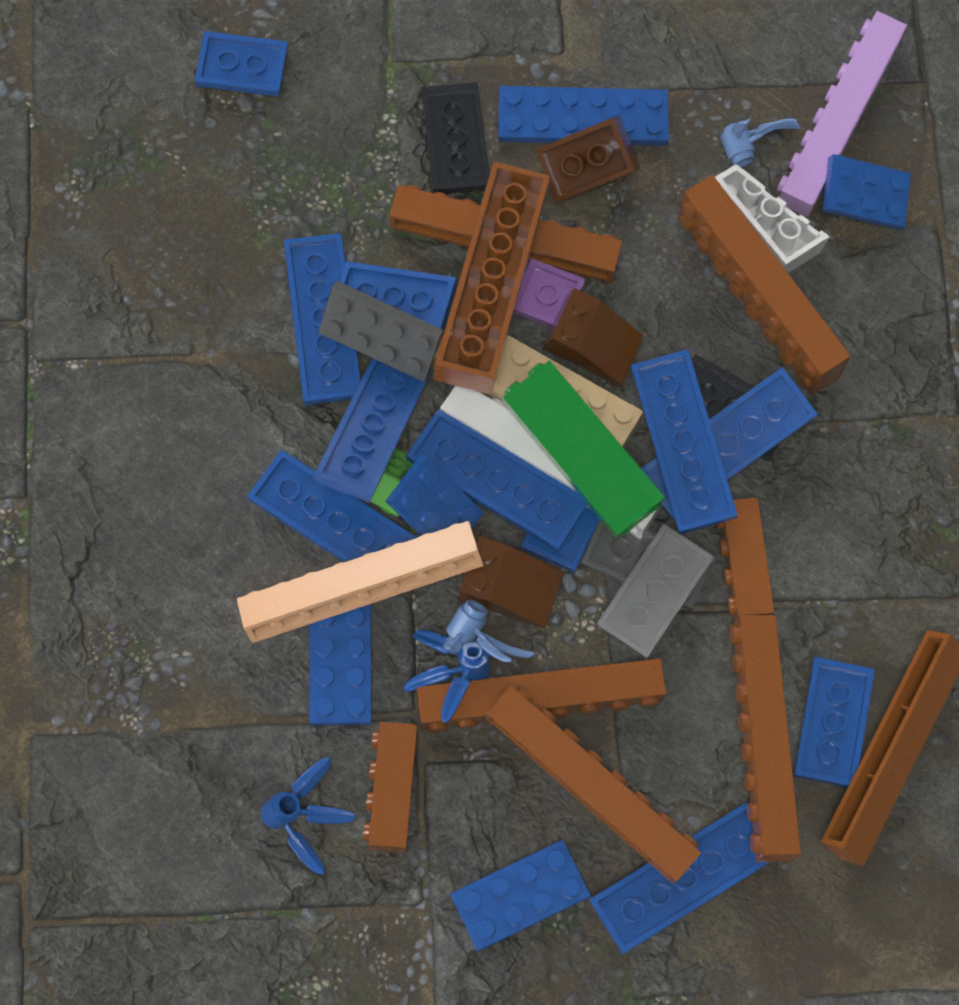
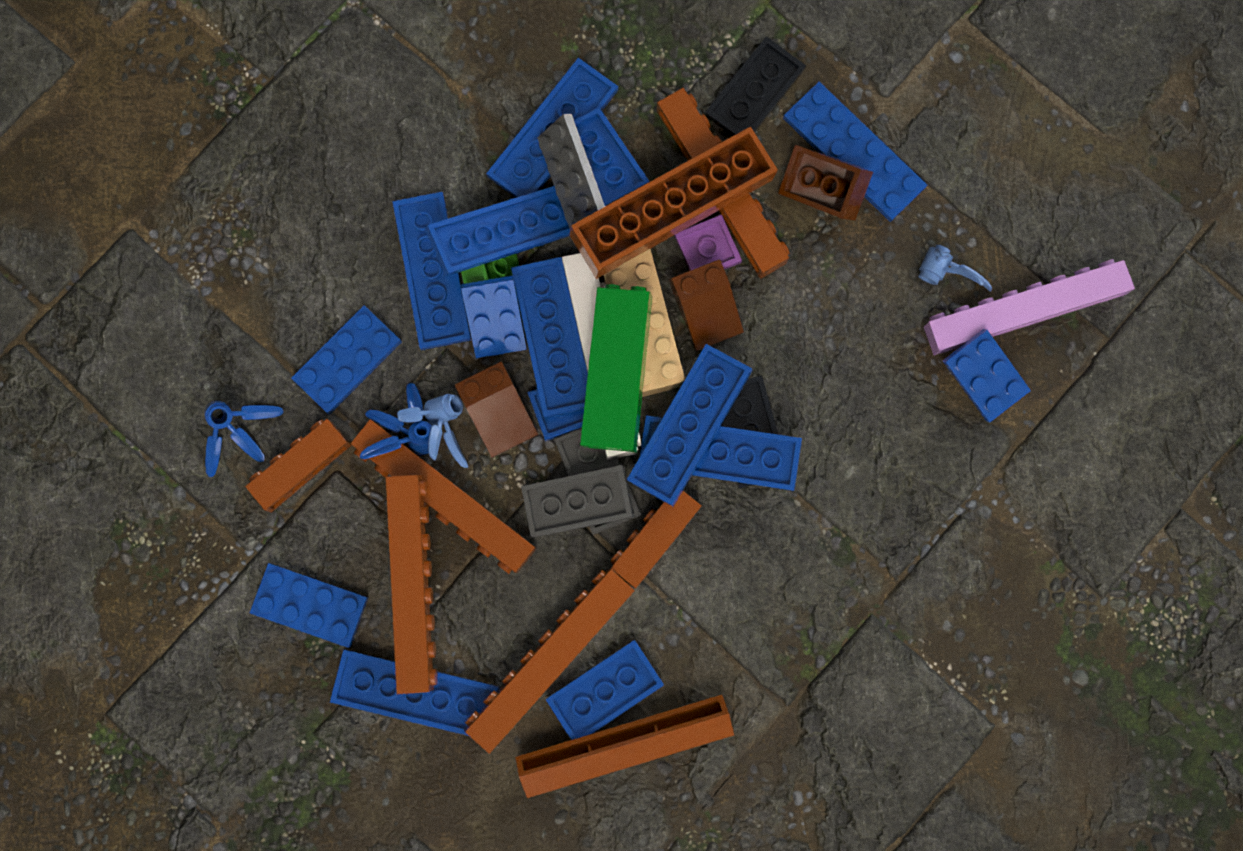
camera: 50 degrees right, 10 degrees up
(359, 582) = (401, 320): light nougat brick -> none
(762, 285) = (850, 371): dark orange brick -> none
(783, 231) = (896, 336): white wedge -> none

